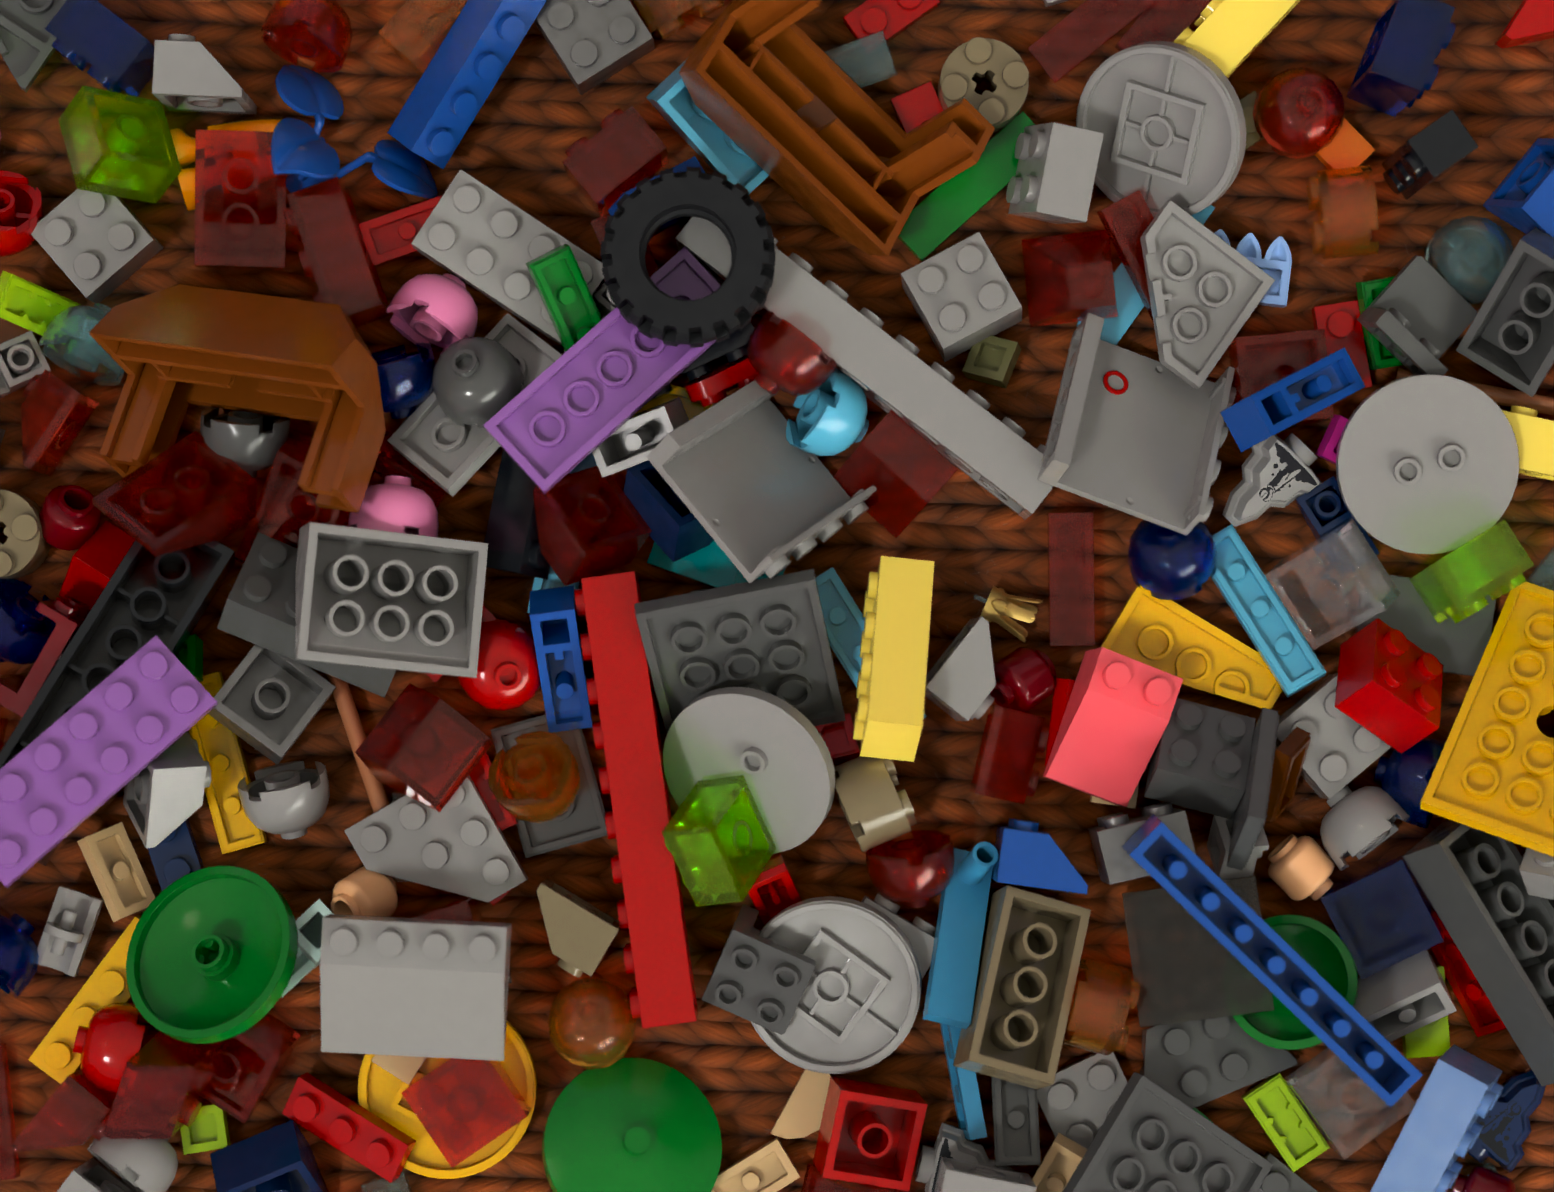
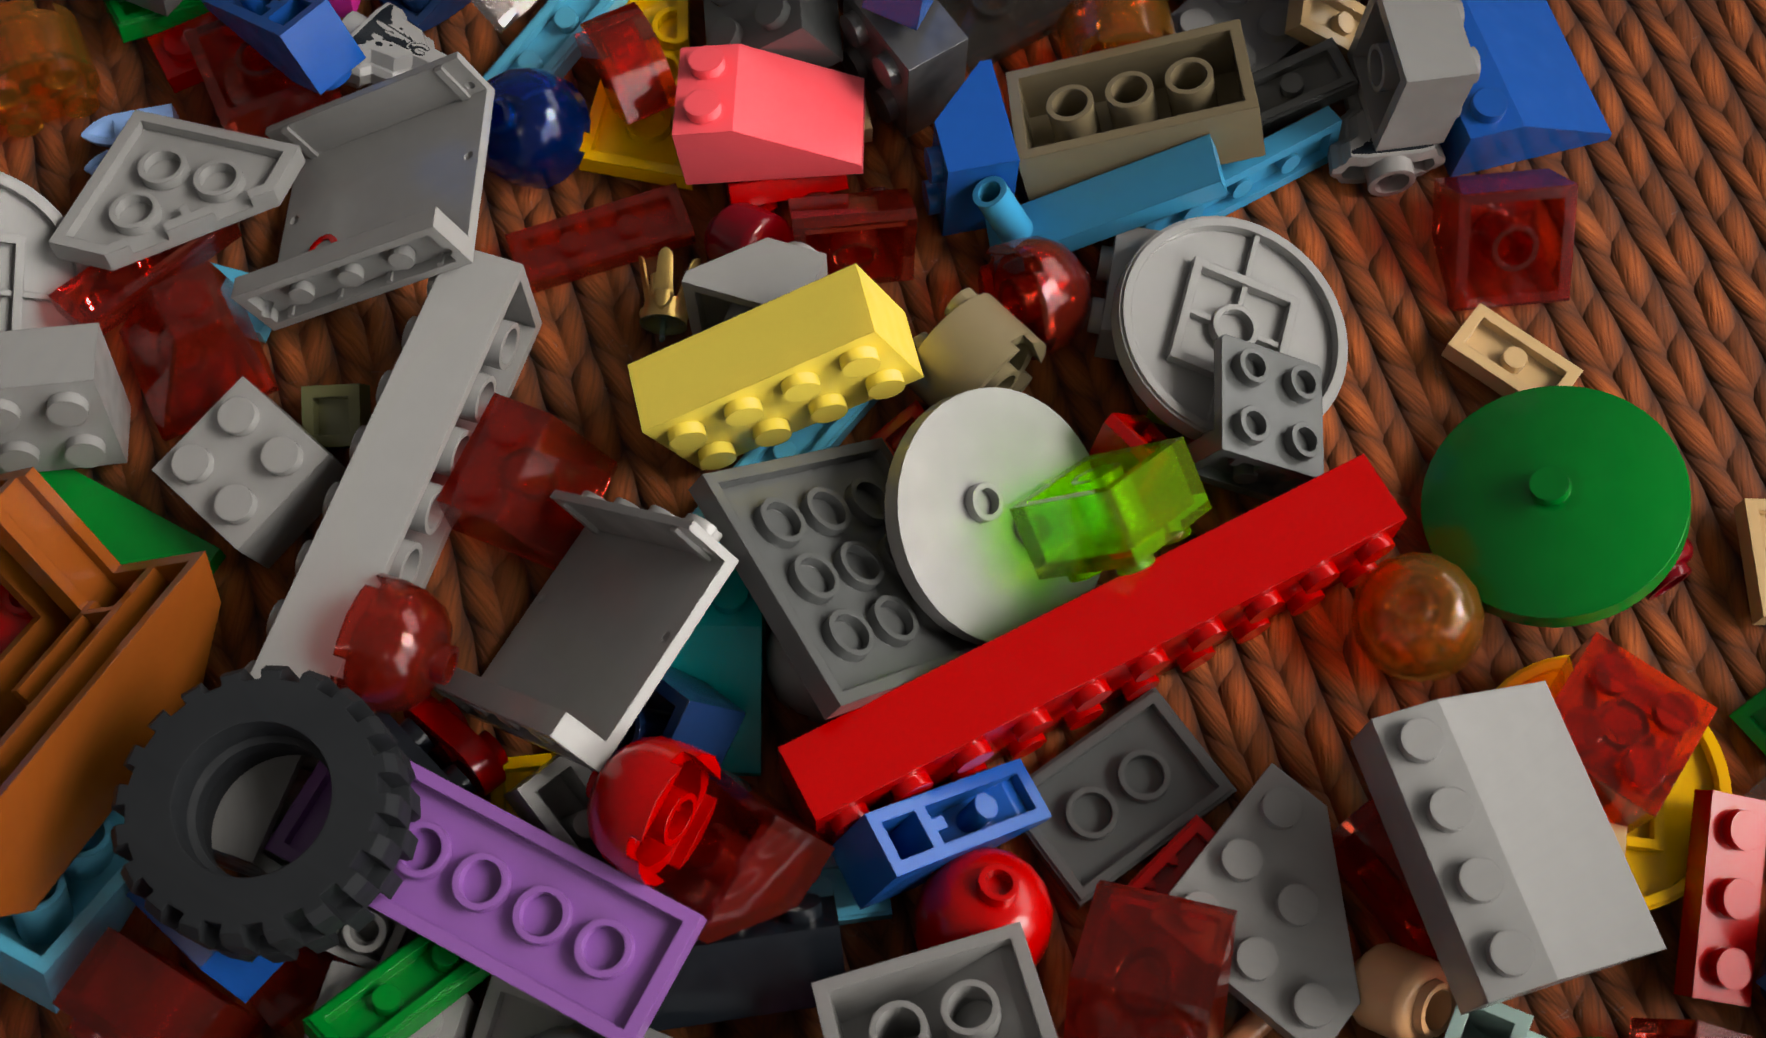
camera: 110 degrees left, 20 degrees down
(535, 777) = (1125, 797): clear orange cylinder -> none
(575, 929) = (1307, 667): dark tan slope -> none
(622, 481) = (651, 806): none -> red cylinder
(804, 1107) = (1391, 334): tan tile -> none
(829, 417) = (480, 585): medium azure cylinder -> none
(869, 1133) = (1390, 235): red brick -> none
(1193, 638) = (628, 62): none -> clear red brick

